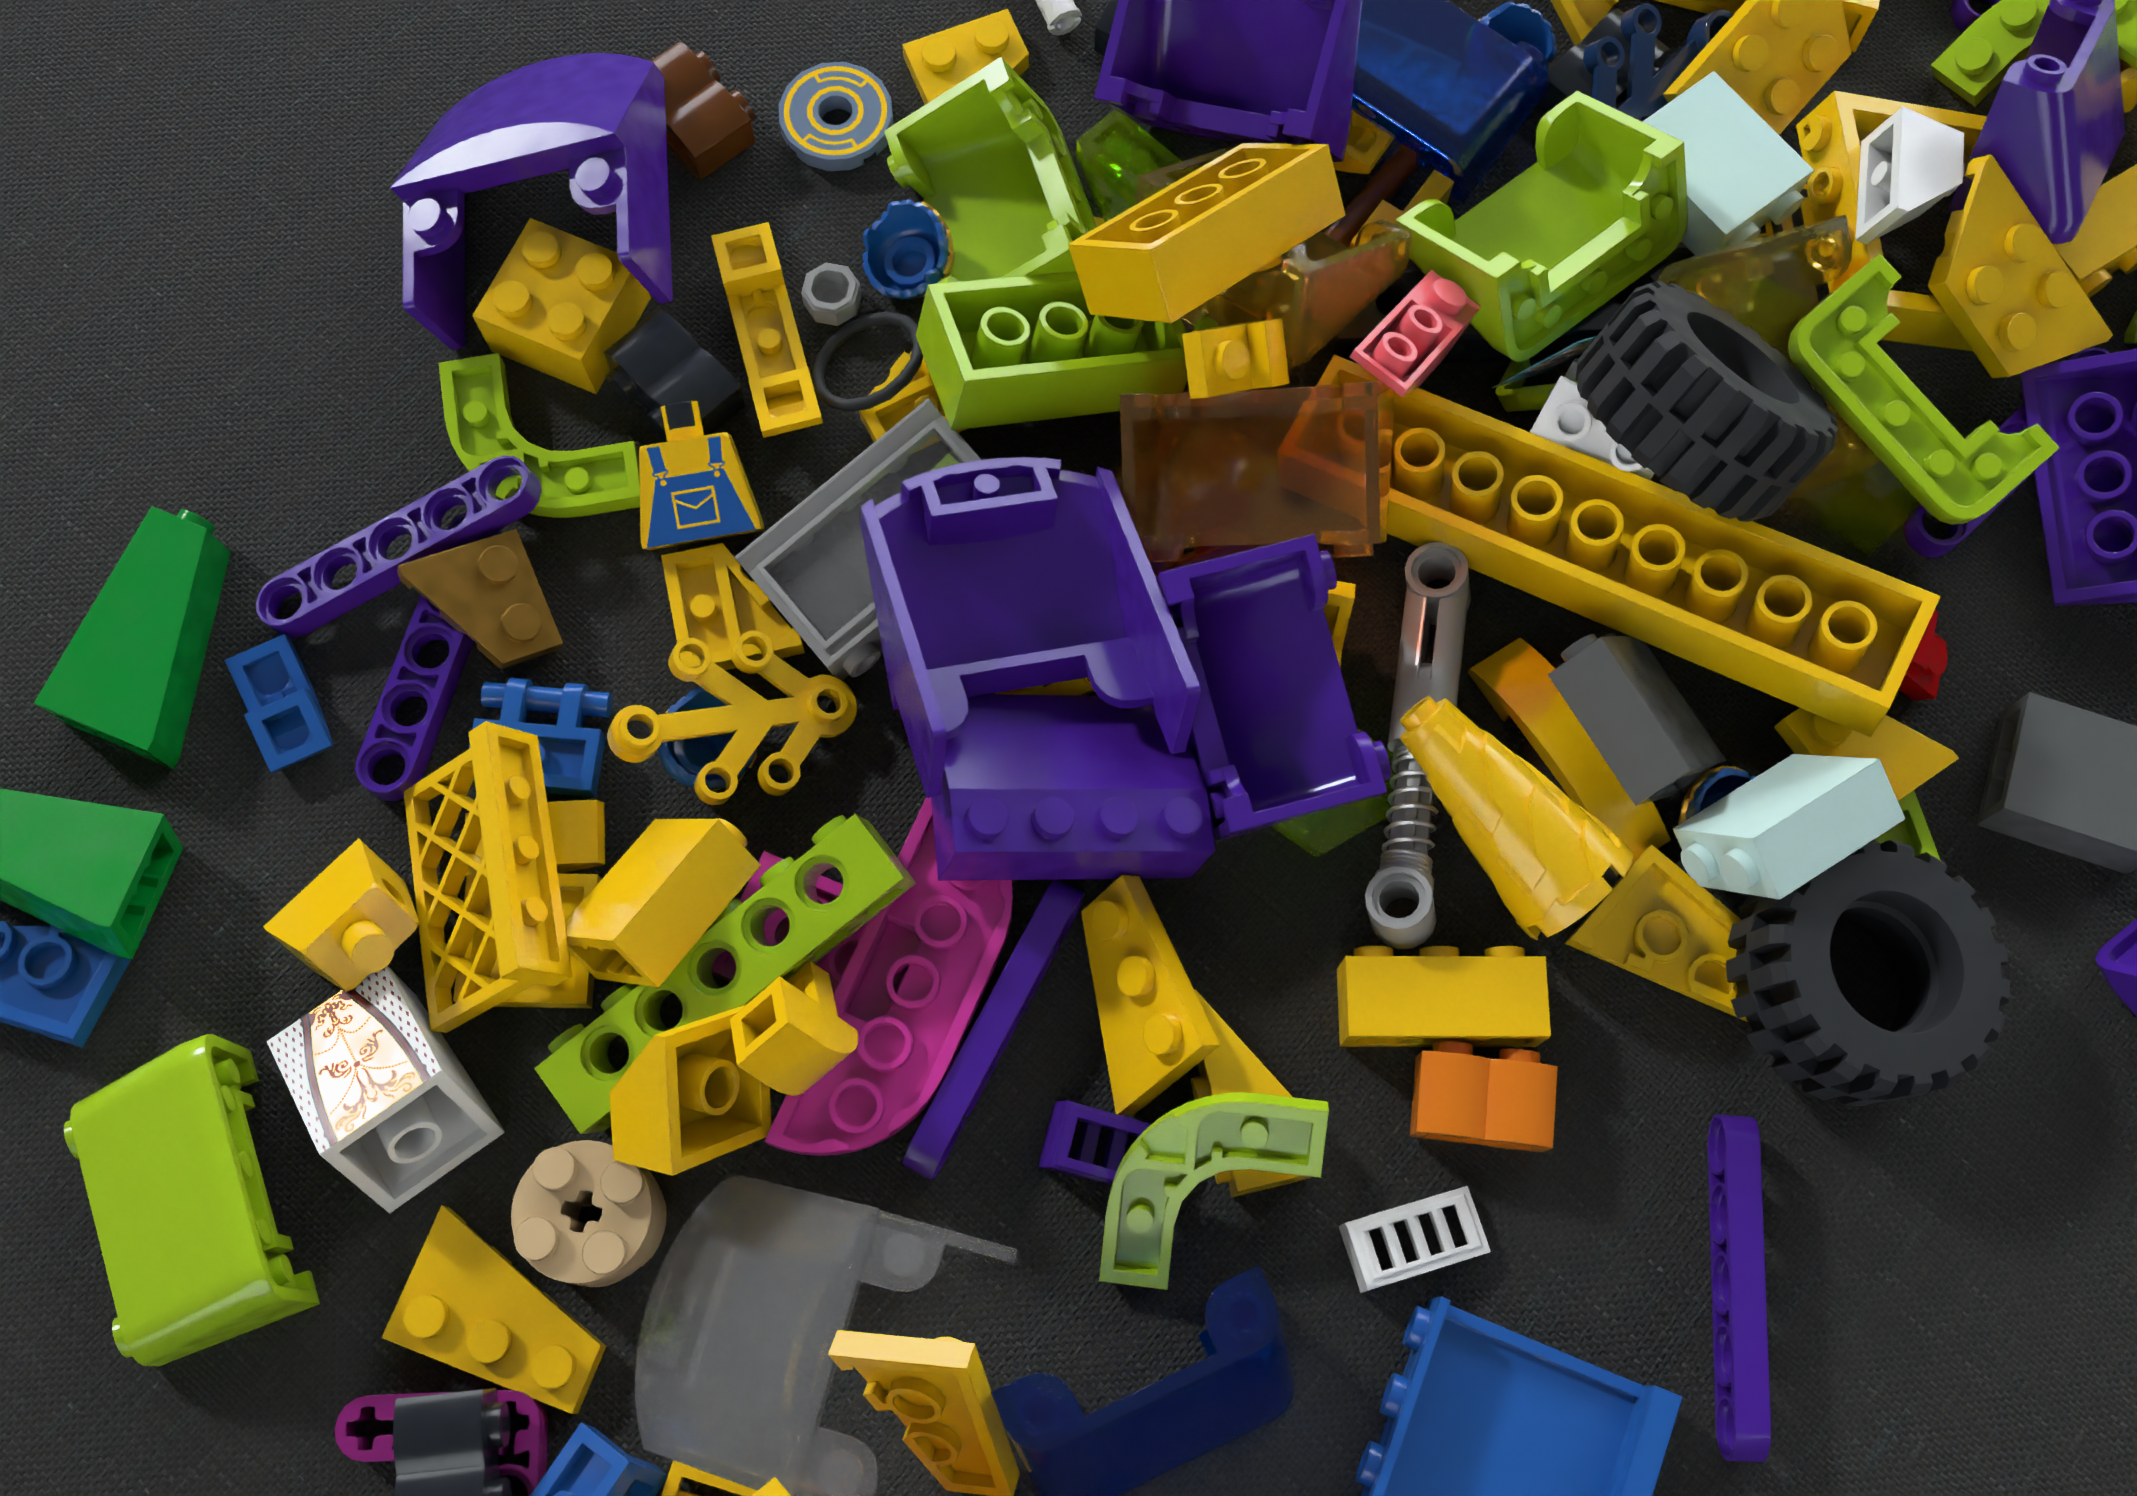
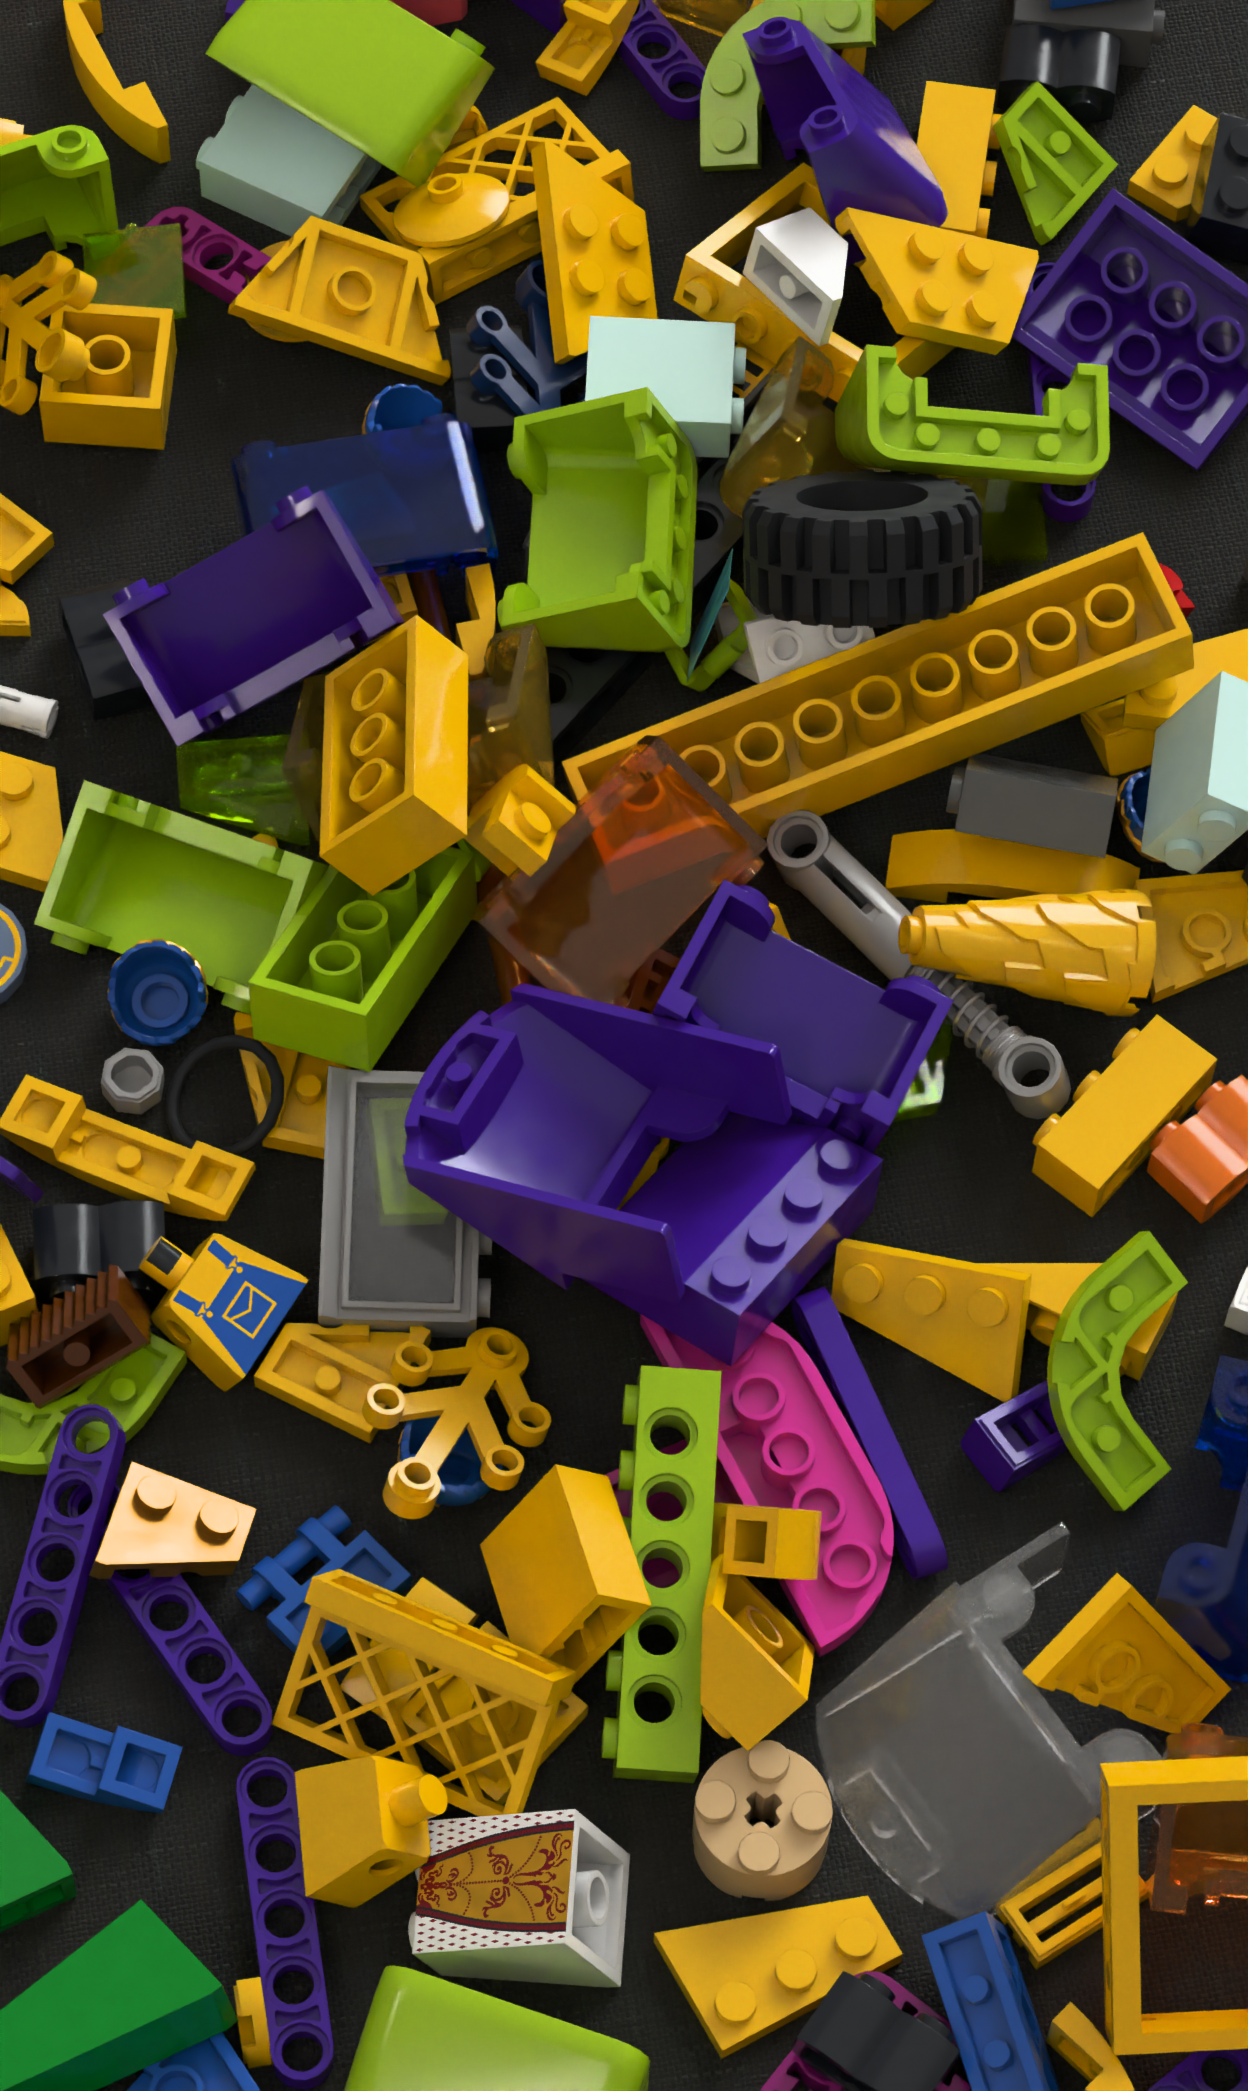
camera: 50 degrees left, 10 degrees down
(151, 967) = (252, 2022): none -> yellow tile
(219, 942) = (289, 1954): none -> dark purple beam
(578, 413) = (77, 1336): none -> reddish brown brick
(1416, 334) = (615, 687): coral slope -> none
(1757, 739) = (1117, 746): none -> yellow slope

